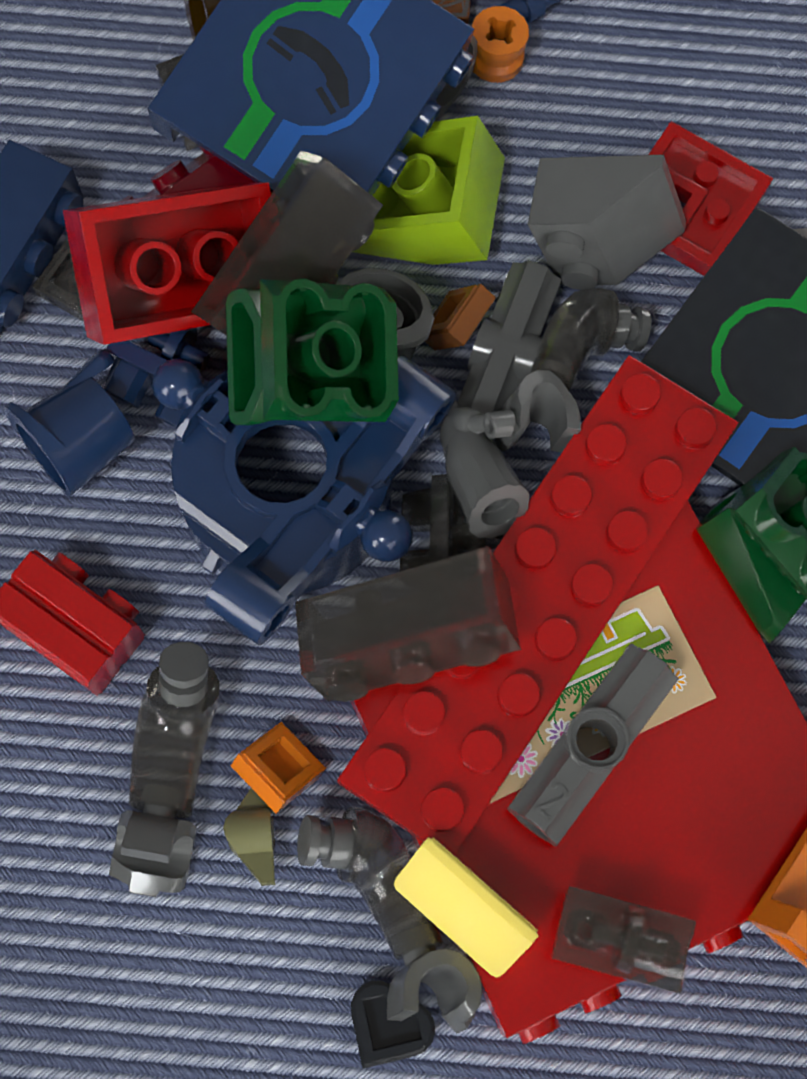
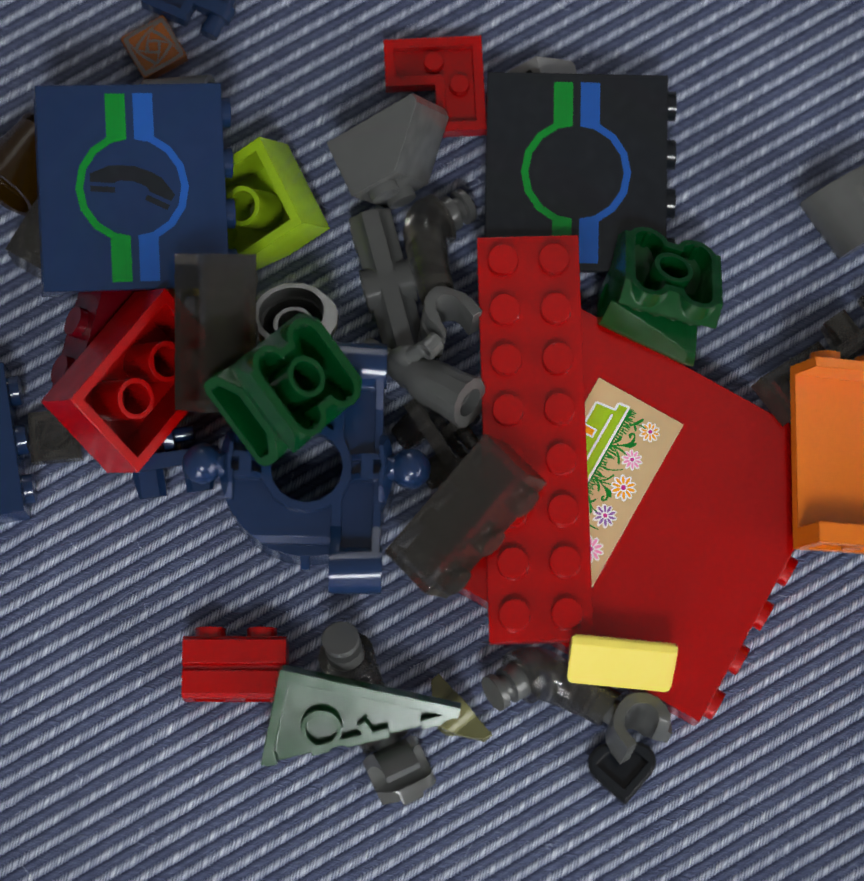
camera: 35 degrees left, 5 degrees up
(74, 428) = (143, 540): dark blue hat -> none
(113, 729) = (328, 711): none -> wing
(278, 767) = (440, 662): orange tile -> none
(459, 316) = (340, 280): dark orange tile -> none
(495, 58) = (223, 70): orange wheel -> none
(566, 777) = (626, 540): dark grey piece -> none
(623, 939) = (728, 613): clear smoke hips -> none

